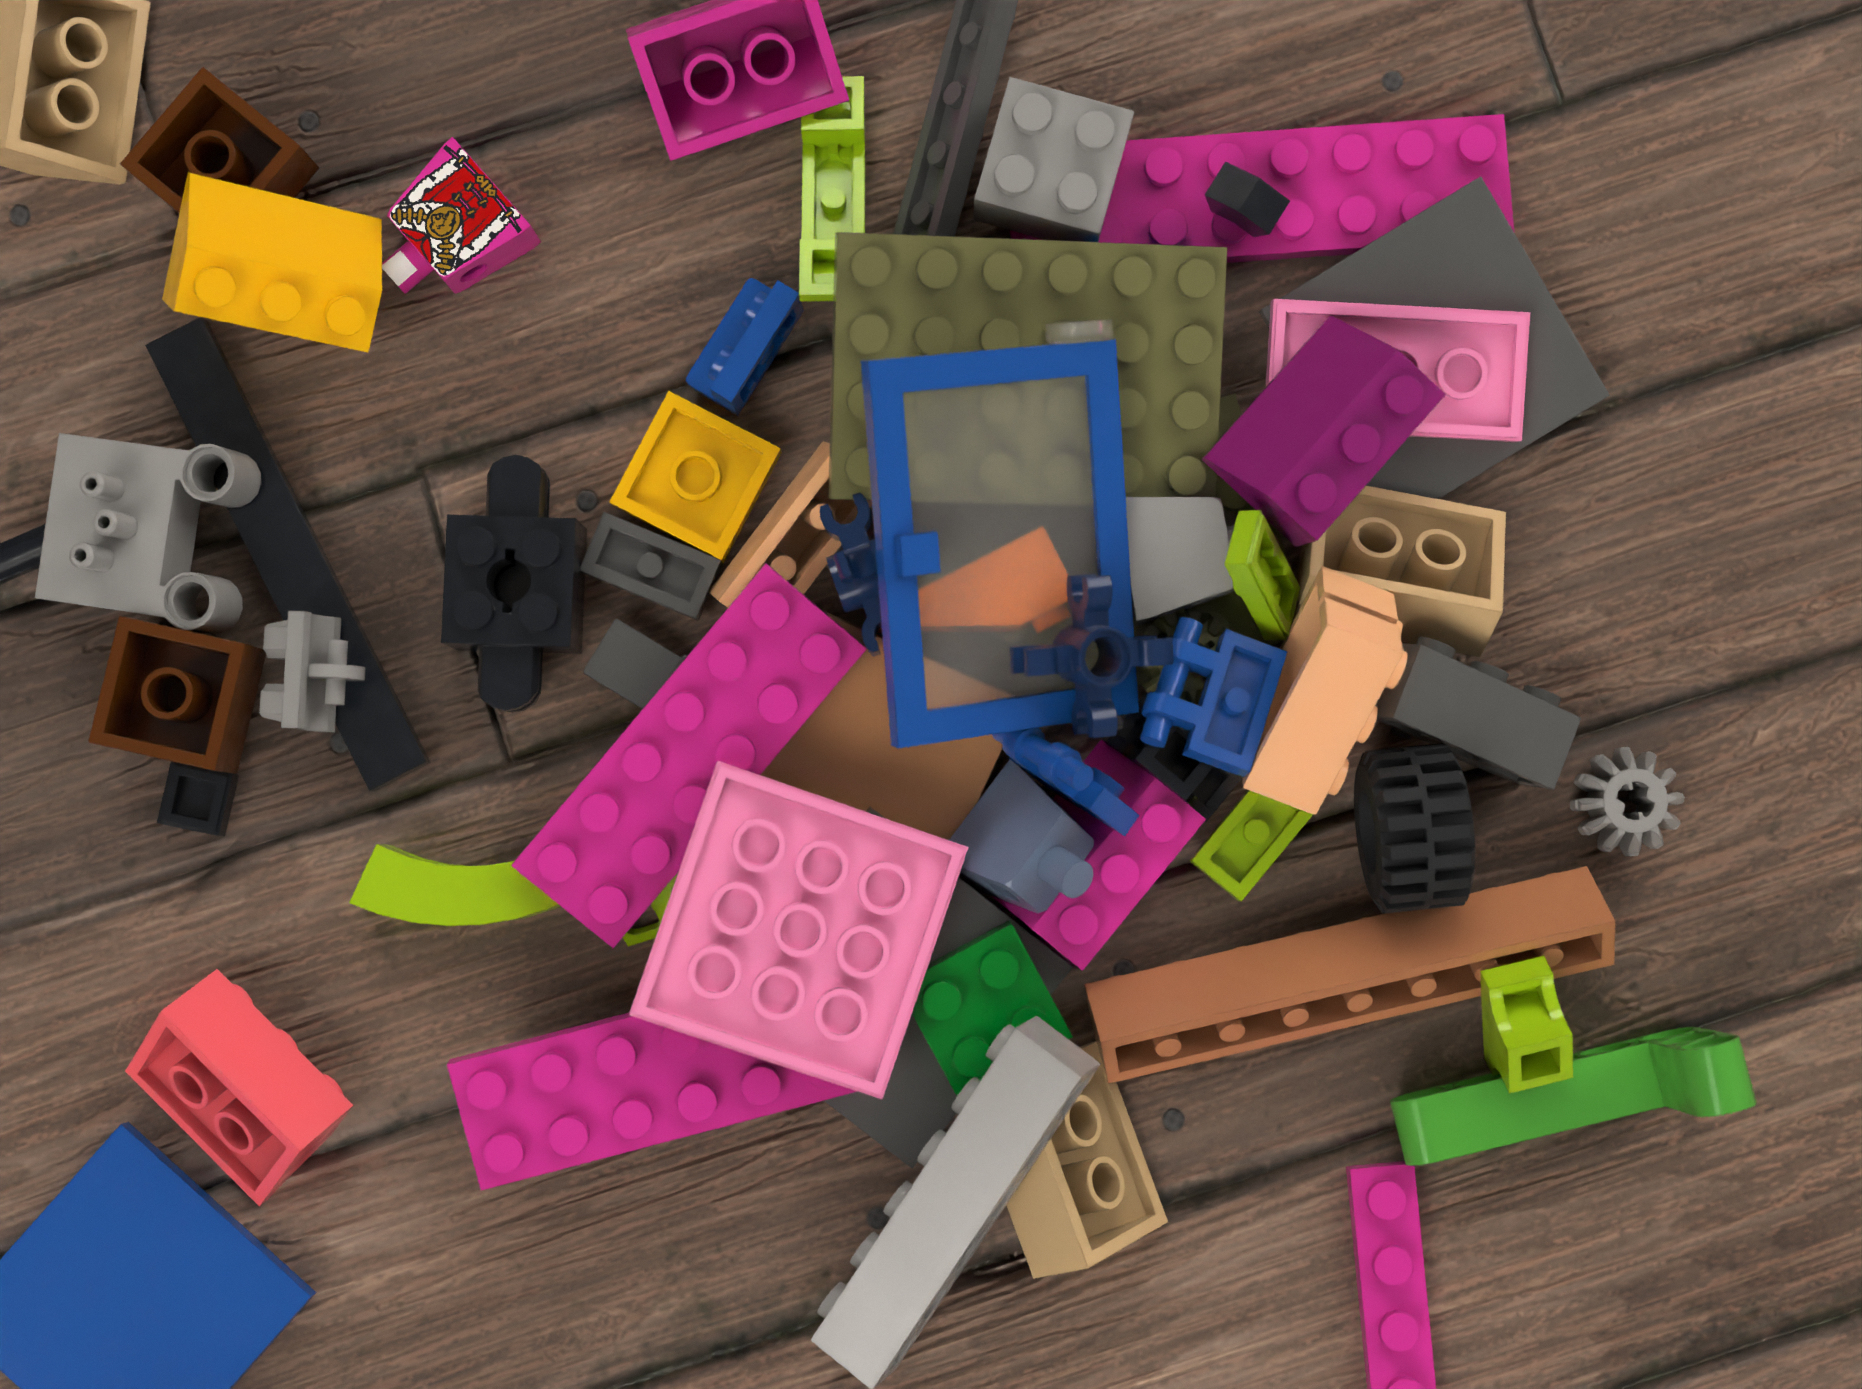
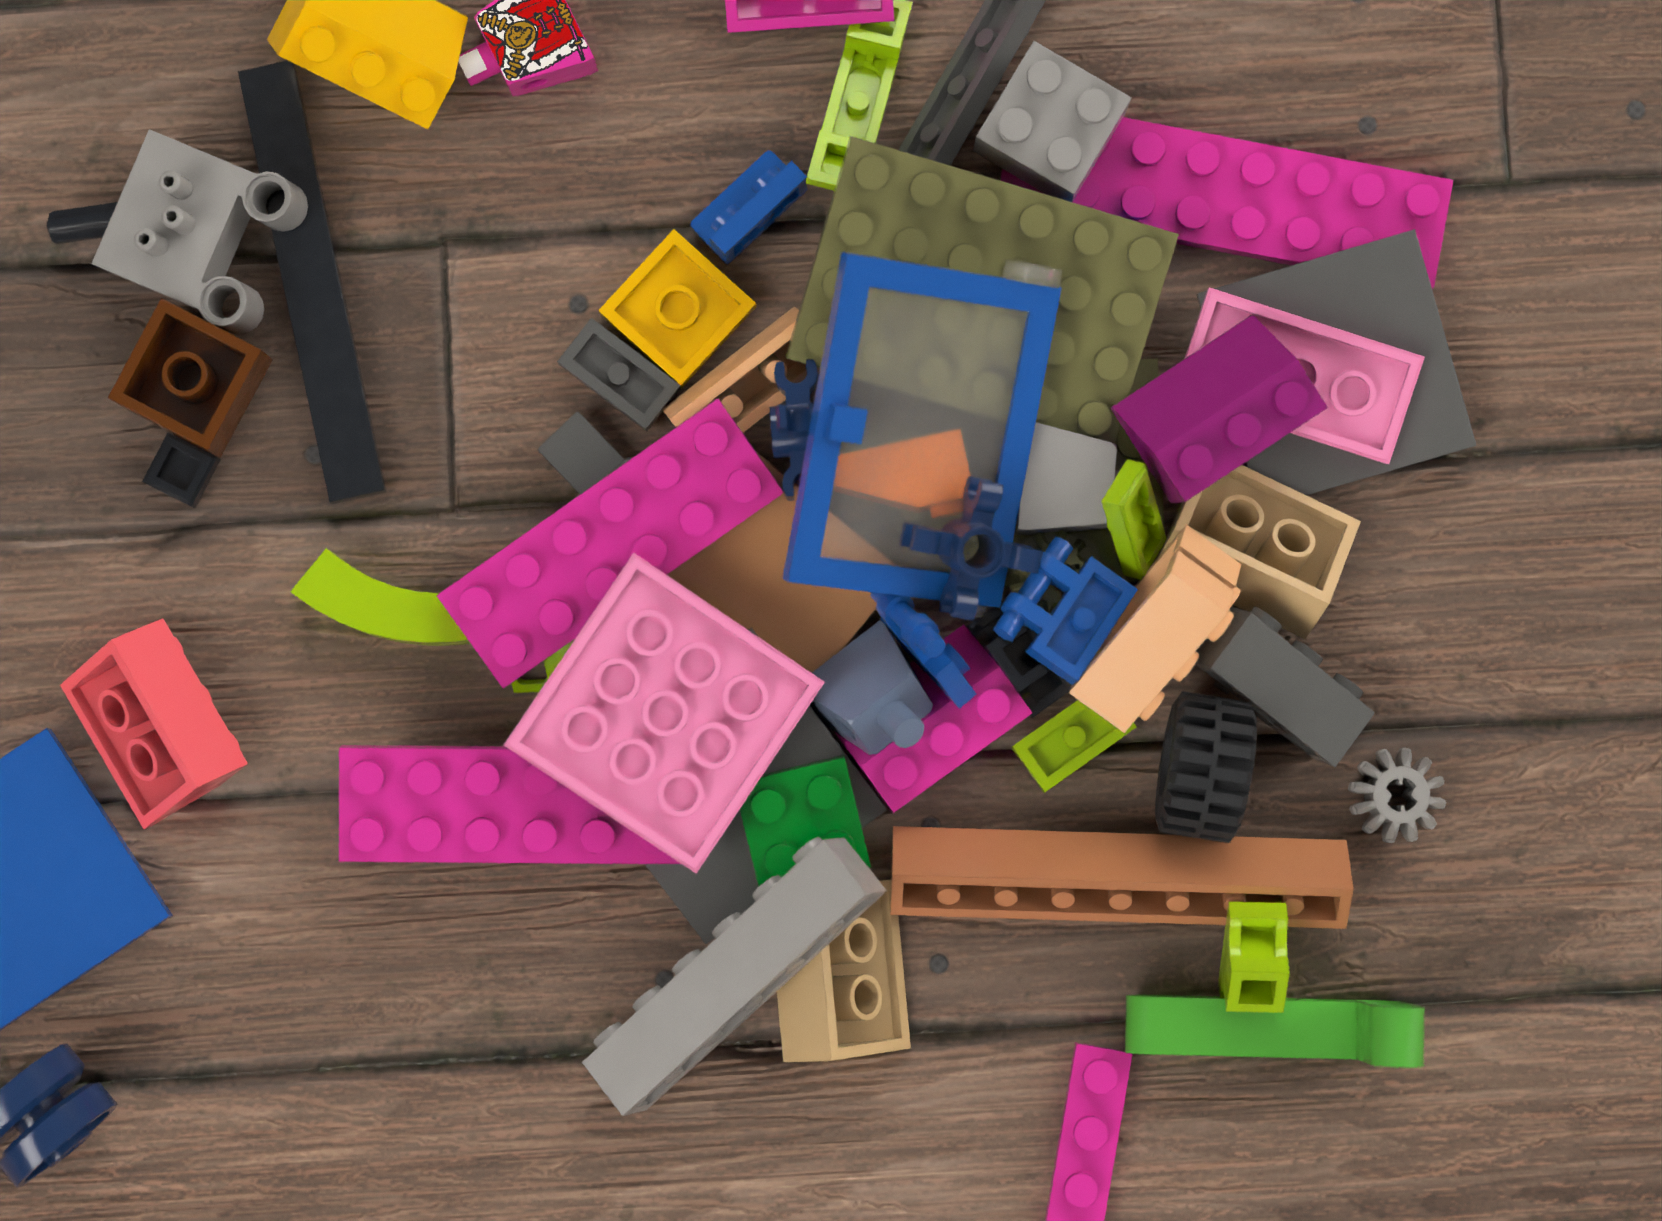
camera: 10 degrees right, 0 degrees up
(312, 673) = (310, 390): light grey hips -> none
(513, 584) = (499, 359): black brick -> none
(1245, 200) = (1208, 197): black piece -> none

